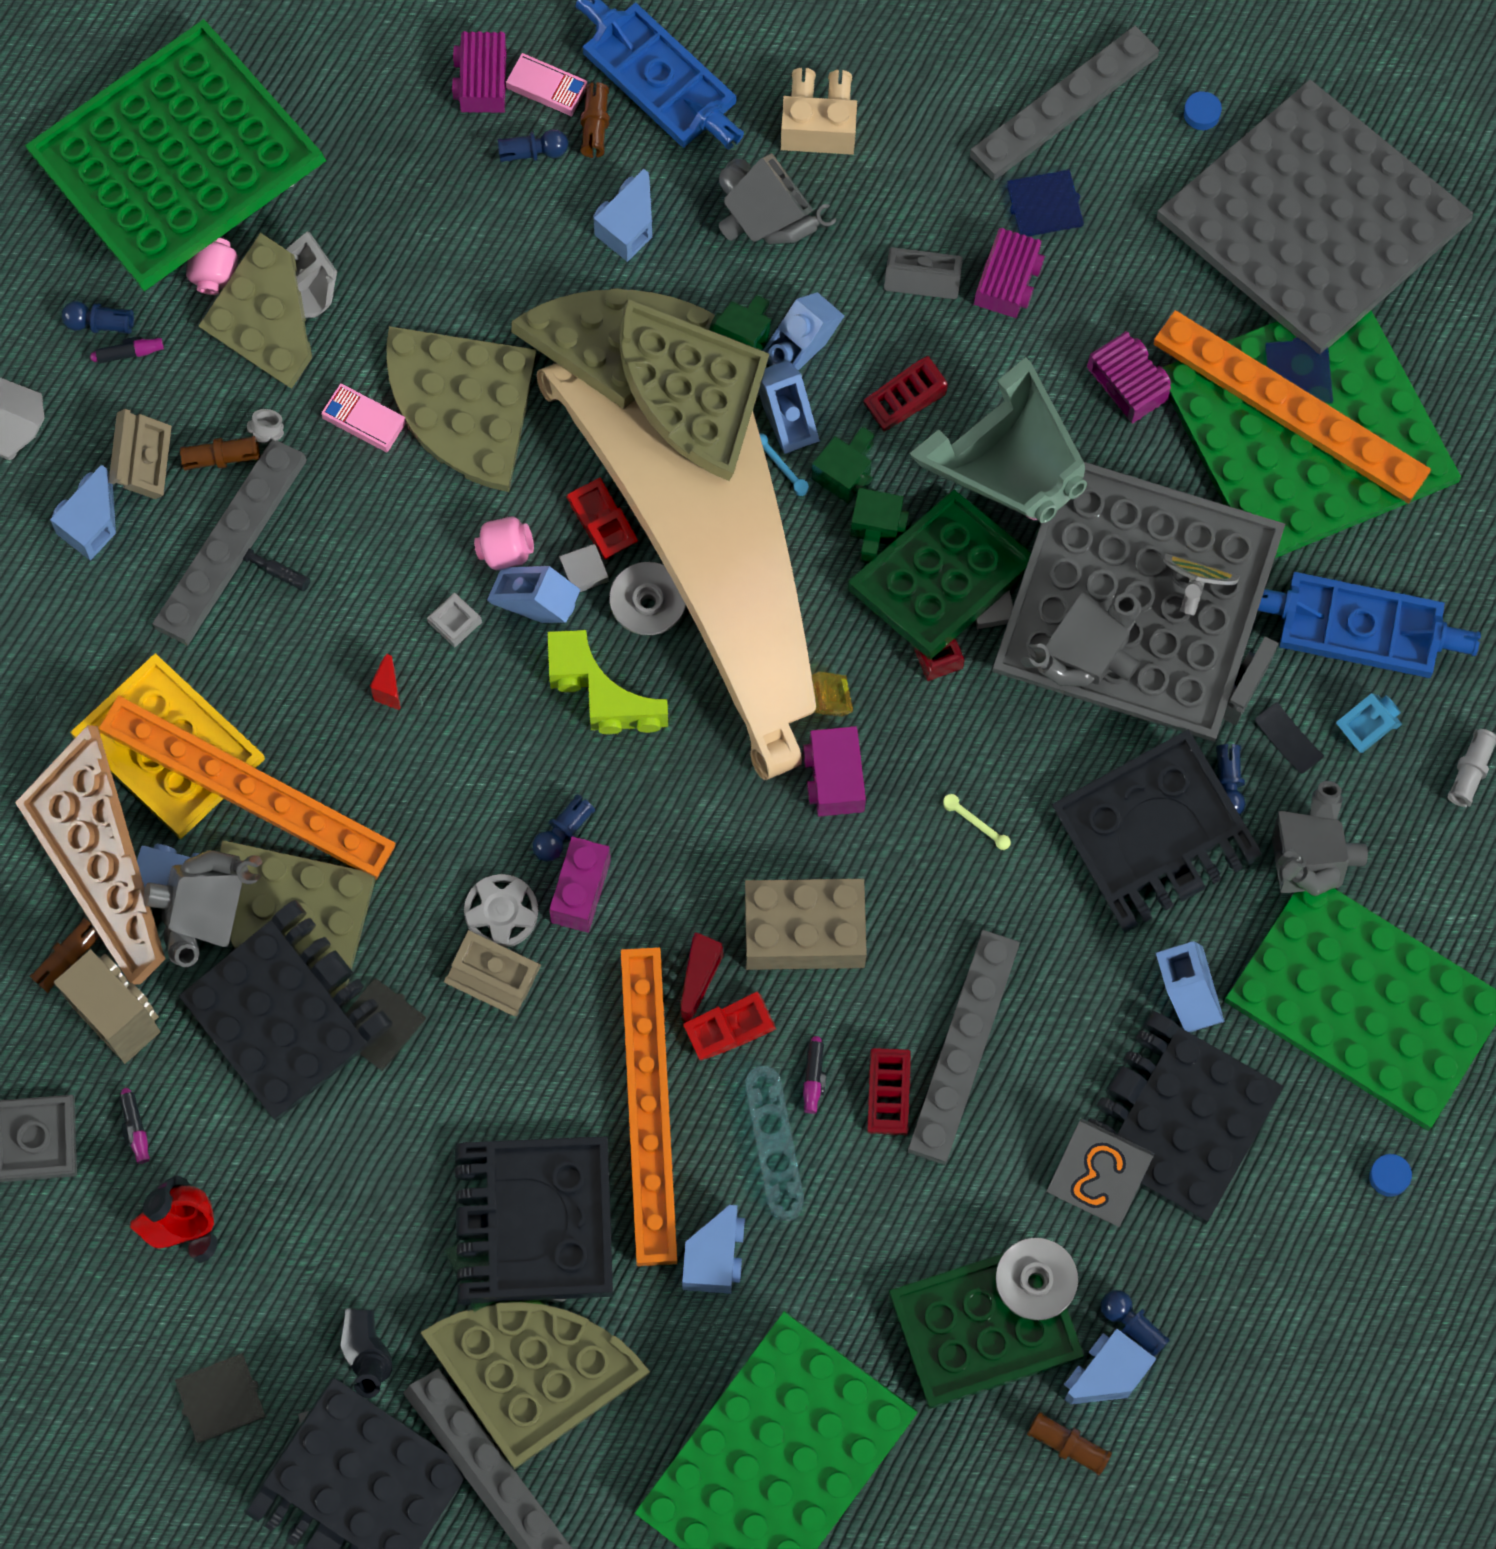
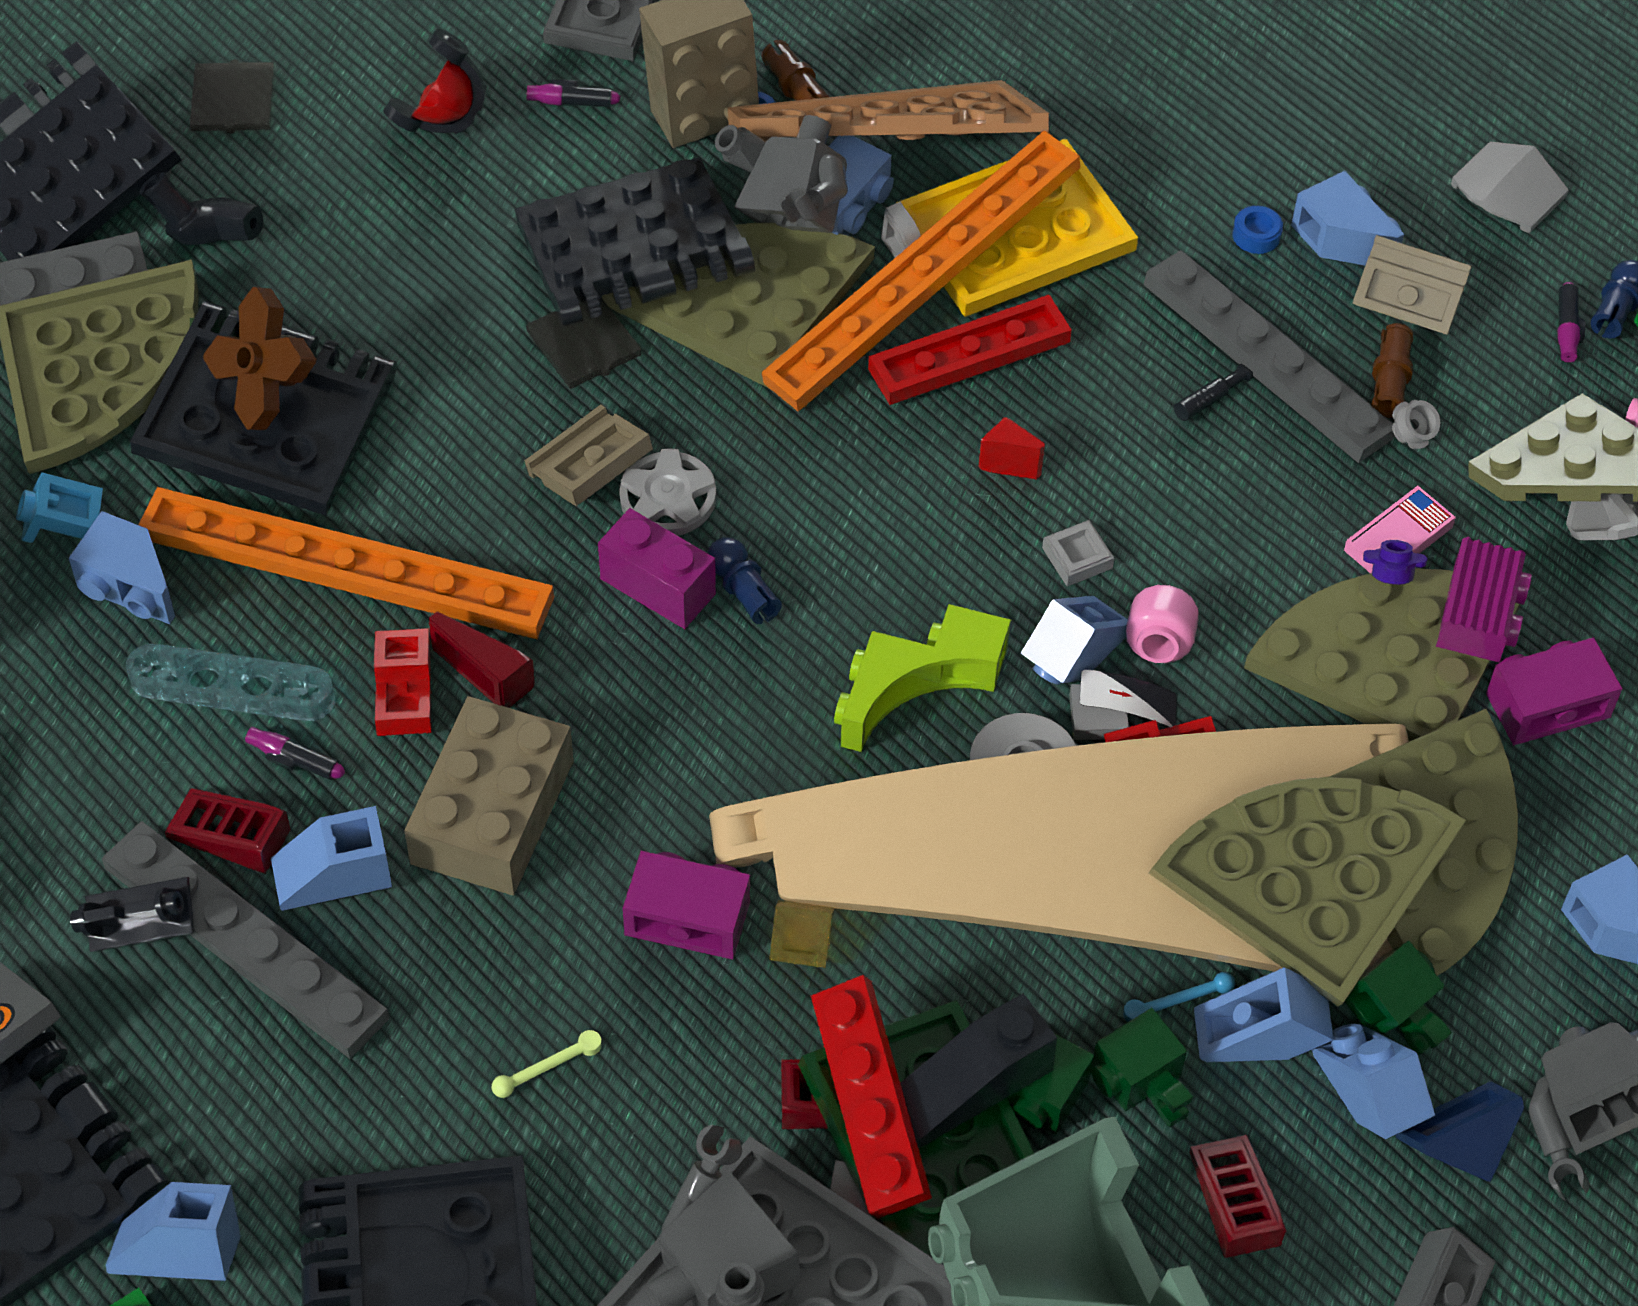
camera: 110 degrees right, 15 degrees down
(107, 579) = (1257, 229): none -> blue tile
(206, 823) = (898, 229): none -> light grey tile
(300, 742) = (969, 349): none -> red plate
(412, 409) = (1394, 562): none -> dark purple plate
(424, 341) = (1482, 600): none -> magenta brick
(468, 292) = (1553, 690): none -> magenta brick
(520, 1210) = (259, 358): none -> reddish brown plant
(568, 551) = (1128, 696): none -> sticker
(679, 1329) = (58, 507): none -> dark azure bracket
(807, 274) = (1469, 1130): none -> dark blue slope
(896, 1003) = (332, 860): none -> medium blue slope
(911, 546) = (979, 1069): none -> black slope
(946, 599) = (870, 1097): none -> red plate
(981, 1114) = (135, 914): none -> black hinge

